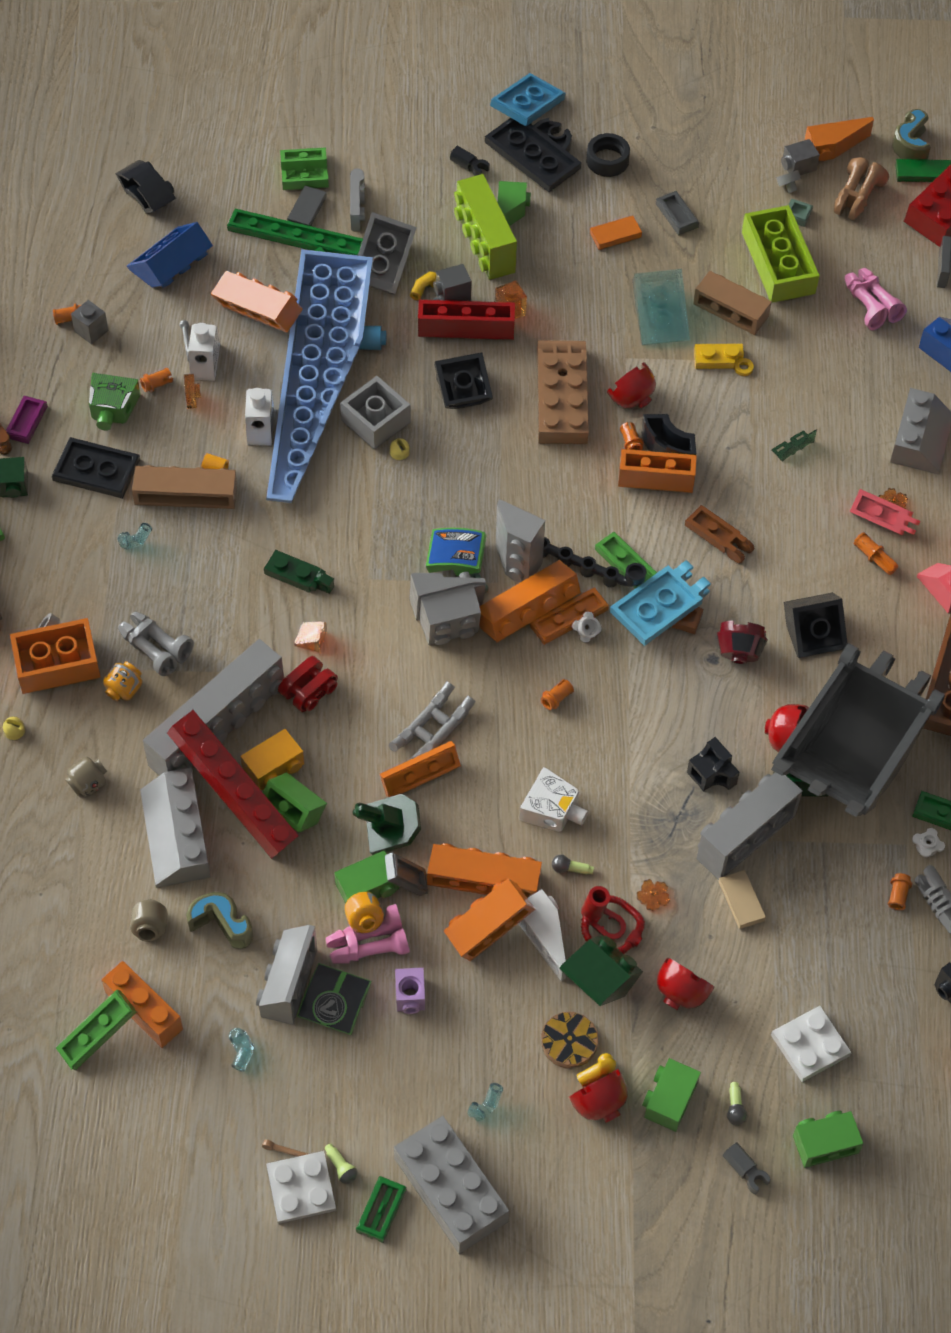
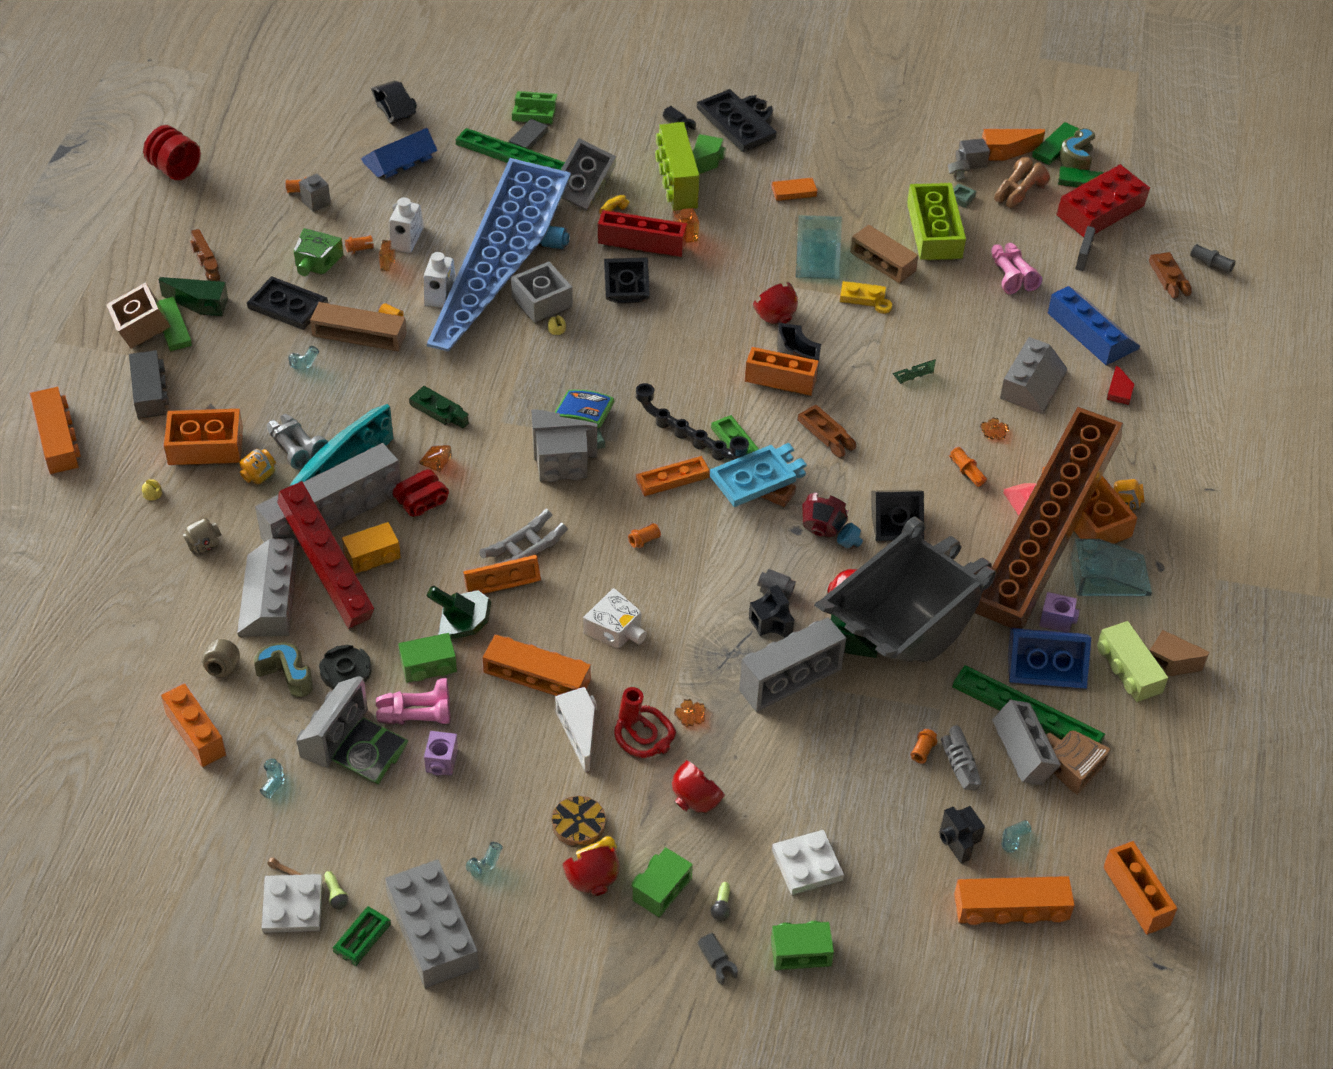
camera: 10 degrees right, 10 degrees down
(26, 419) = (238, 258): magenta tile -> none
(96, 1030) = (144, 738): bright green tile -> none
(213, 647) = (360, 436): none -> teal wedge
(257, 301) = (461, 193): brick -> none
(281, 905) = (344, 664): none -> pearl dark grey tile
(294, 802) = (380, 582): bright green brick -> none
(357, 197) = (573, 132): light grey hinge -> none
(364, 912) = (415, 679): light orange head -> none
(406, 874) = (463, 655): dark grey tile -> none
(453, 284) = (635, 201): dark grey brick -> none
(488, 919) = (528, 703): orange brick -> none
(519, 541) = (640, 405): light grey slope -> none
(527, 99) = (742, 80): dark azure tile -> none
(528, 600) = (637, 456): orange brick -> none
(562, 392) = (713, 301): medium nougat hinge -> none
(563, 864) = (612, 673): piece -> none
(592, 631) = (693, 487): white plate -> none
(602, 970) = (622, 763): dark green slope -> none
(610, 142) = (799, 139): black tyre -> none
(631, 437) = (766, 342): orange pin -> none
(677, 213) = (853, 182): dark grey tile -> none
(707, 728) = (774, 578): none -> flat silver brick
(742, 899) = (772, 729): tan tile -> none
(771, 659) = (849, 536): none -> dark azure tile
(883, 513) = (982, 434): coral hinge -> none
(884, 129) = (1051, 147): none -> green tile
(925, 849) = (960, 715): white plate -> none

